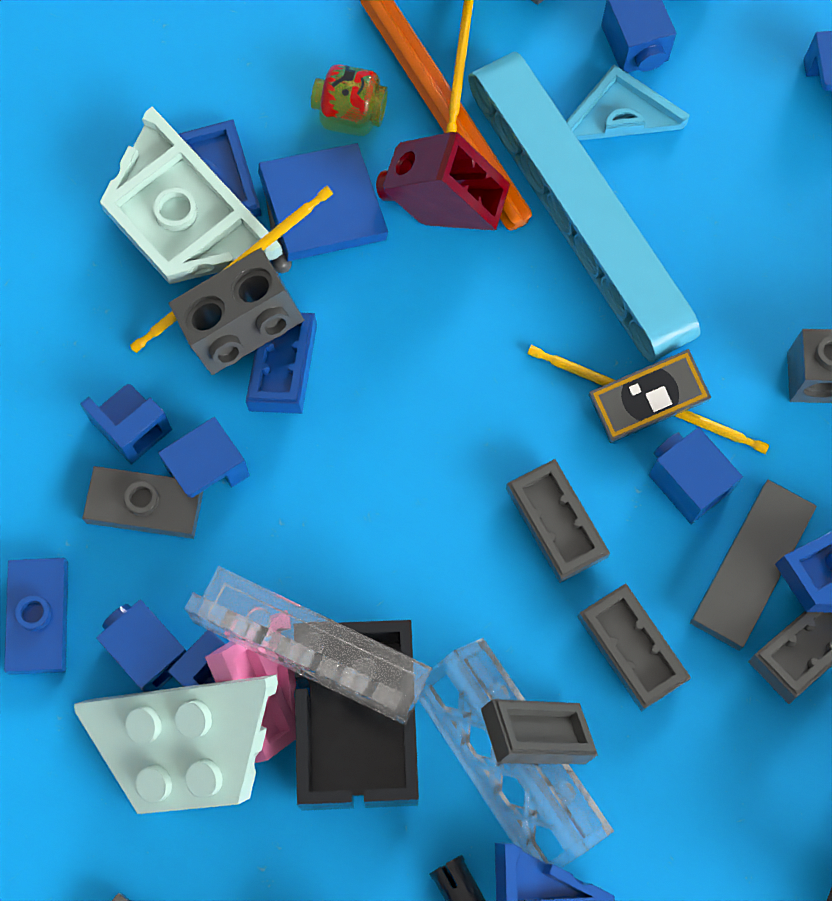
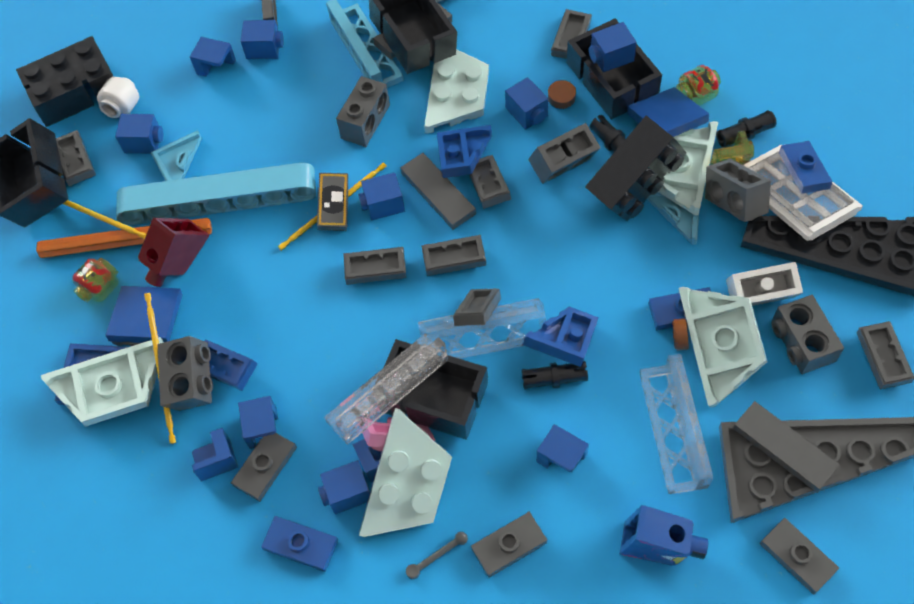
camera: 60 degrees left, 10 degrees down
(54, 814) = (413, 570): none -> dark grey hinge

